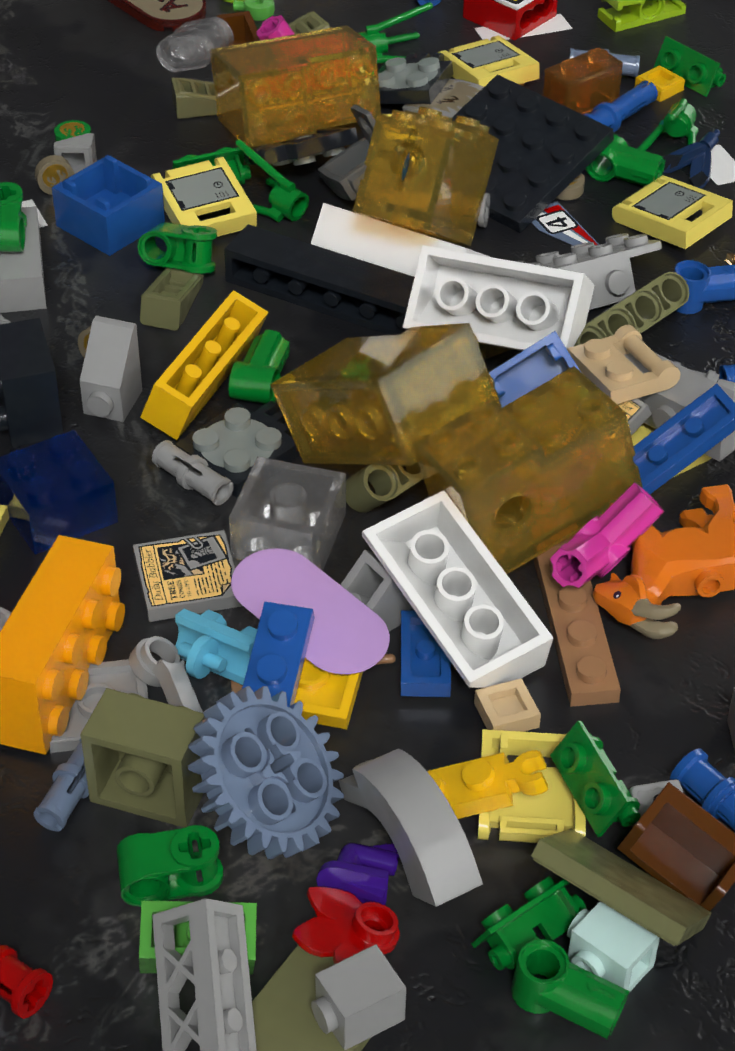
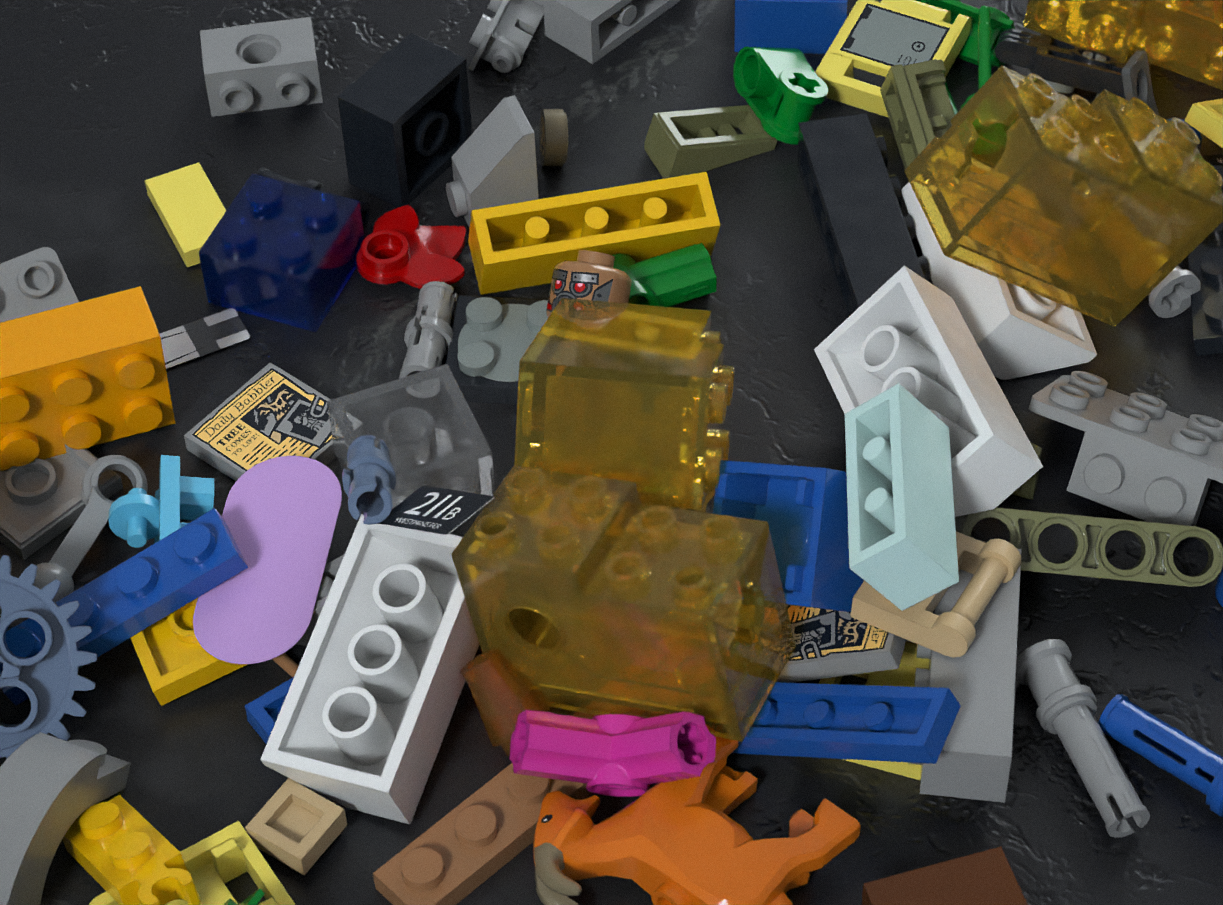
camera: 55 degrees right, 5 degrees up
(117, 446) = (411, 252): none -> red plate
(255, 379) = (589, 279): none -> head
(269, 213) = (917, 106): none -> olive hinge
(360, 514) = (369, 480): none -> sand blue pin
(409, 490) = (435, 510): none -> black sticker
(525, 573) = (499, 696): none -> clear orange cone
(590, 323) = (900, 498): none -> light aqua brick

